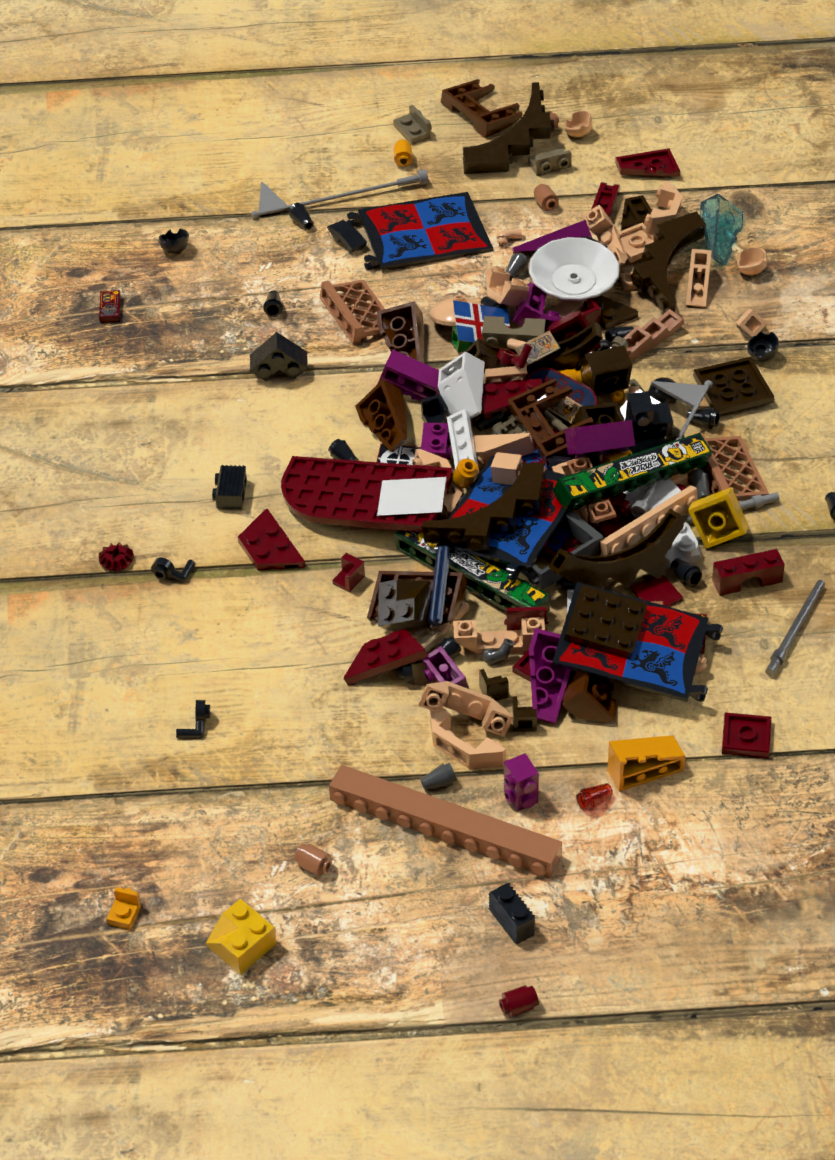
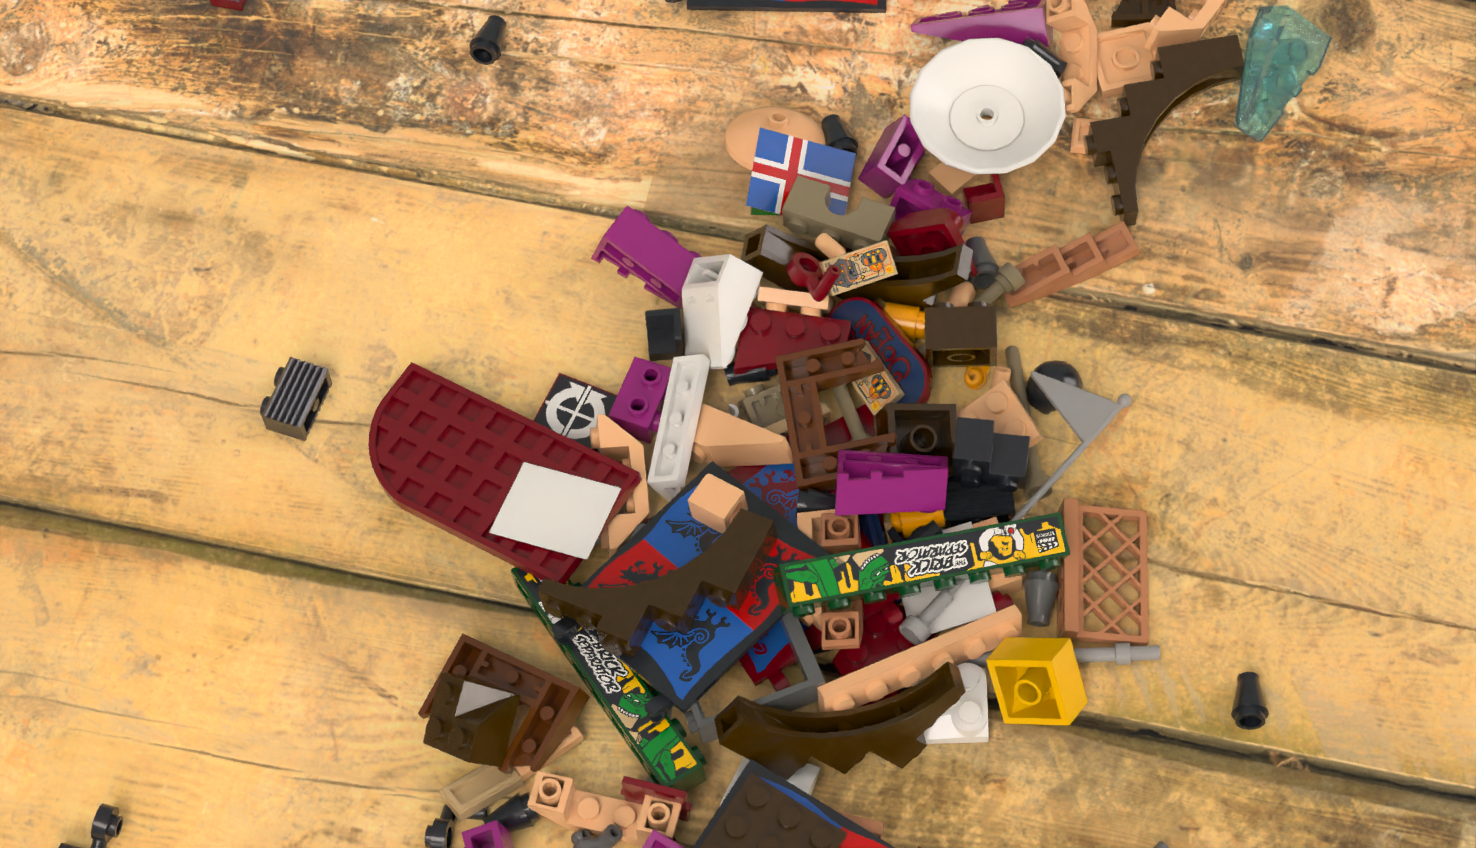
camera: 20 degrees right, 15 degrees up
(121, 561) = (83, 497): dark red gear -> none
(164, 569) = (141, 533): black plate -> none
(268, 544) = (319, 523): dark red wing -> none
(278, 354) = (453, 159): black brick -> none
(340, 450) = (493, 375): black cone -> none
(344, 313) = (592, 81): nougat fence -> none
(351, 573) = (421, 620): dark red panel -> none
(384, 655) = (414, 800): dark red wing -> none
(385, 414) = (585, 313): reddish brown wedge -> none
(403, 329) = (673, 161): reddish brown wedge -> none
(439, 585) = (535, 701): dark blue axle -> none
(465, 473) = (651, 499): light orange brick -> none
(502, 289) = (859, 120): light nougat slope -> none
(517, 265) = (905, 62): dark grey cone -> none
(613, 312) = (1032, 197): dark brown wing -> none
(613, 332) = (1020, 248): black cone -> none
(657, 590) = (892, 792): dark red piece -> none
(686, 572) = (952, 767): black cone -> none
(698, 278) = (1198, 167): light nougat slope -> none
(706, 417) = (1103, 460): black cone -> none
(732, 572) = (1027, 793): dark red arch -> none
(735, 385) = (1174, 406): dark brown plate -> none
(751, 322) = (1252, 281): light nougat panel -> none
(752, 261) = (1302, 151): light nougat hair -> none
(763, 346) = (1251, 338): black hair -> none

